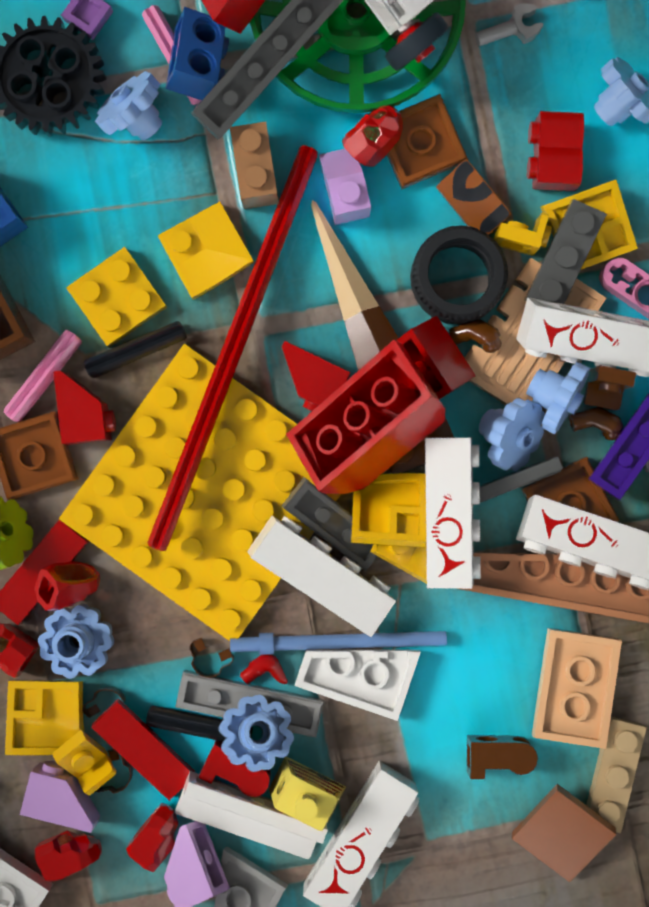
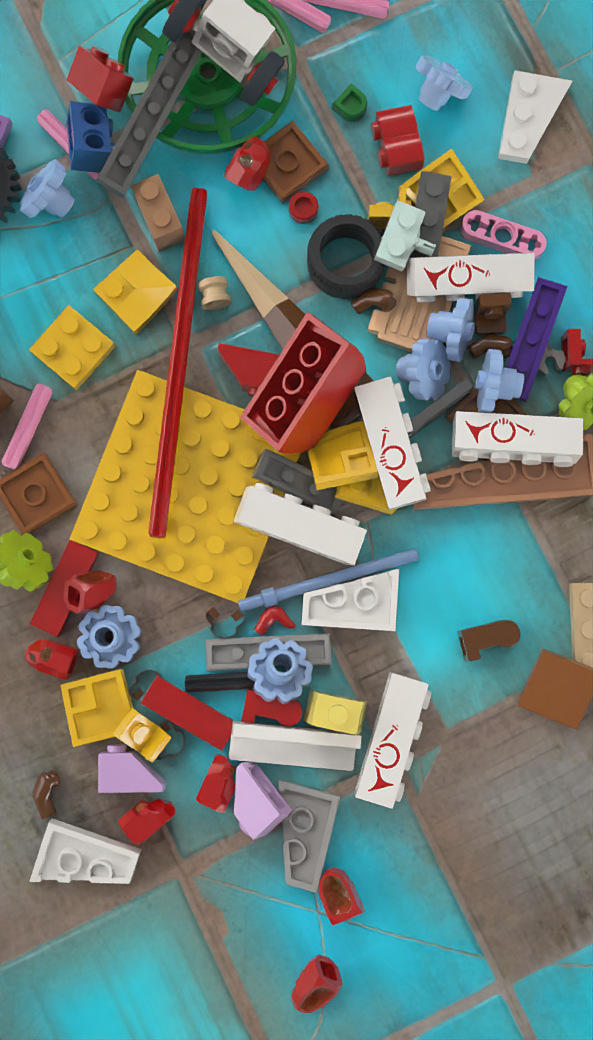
camera: 15 degrees left, 5 degrees down
(81, 413) = (67, 447): red slope -> none
(135, 349) = (98, 385): black axle -> none
(295, 277) = (214, 293): none -> tan wheel
(345, 186) = (236, 212): lavender slope -> none
(425, 201) = (303, 207): none -> red tile
(437, 357) = (348, 322): red brick -> none
(473, 198) = (341, 193): slope -> none
(512, 27) = (337, 55): light grey bar -> none
(513, 91) = (351, 104): none -> green tile
(529, 273) = (402, 237): none -> light aqua plate
(576, 688) = (536, 565): light nougat plate -> none
(590, 472) = (496, 382): none -> light blue plant

